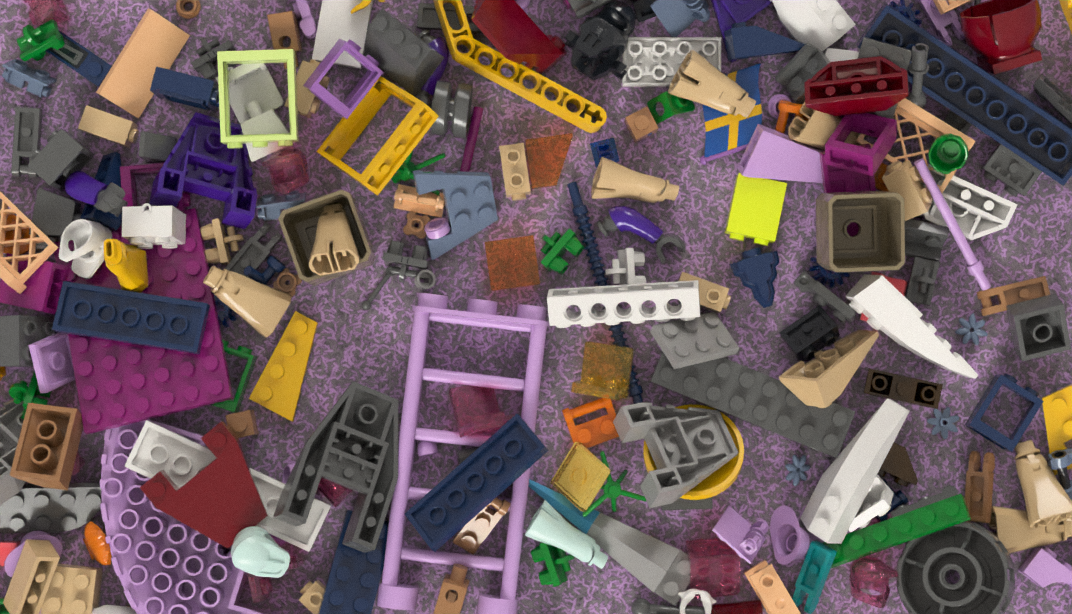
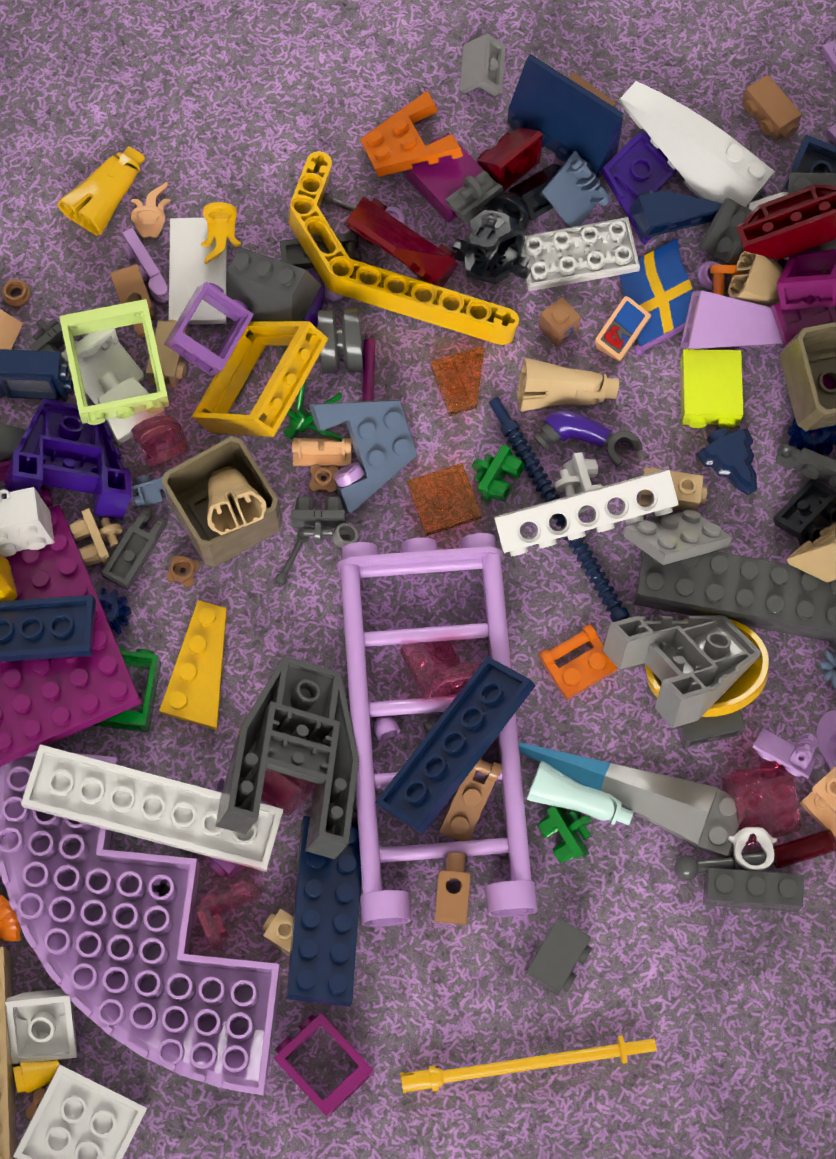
camera: 15 degrees left, 15 degrees down
(218, 498) = (142, 819): dark red wedge -> none
(242, 423) = (156, 740): medium nougat brick -> none
(254, 302) = (145, 592): tan piece -> none
(259, 553) = (206, 877): light aqua helmet -> none
(274, 266) = (152, 571): dark blue piece -> none
(515, 171) = (426, 397): tan brick -> none
(580, 476) = (578, 720): clear yellow tile -> none
(605, 371) = (580, 595): clear yellow bracket -> none
(606, 149) = (516, 358): clear blue tile -> none
(612, 490) = (619, 726): green plant -> none
(672, 106) = (591, 293): green bracket -> none
(693, 140) = (622, 329): none -> slope
(706, 85) = (625, 265): tan piece -> none

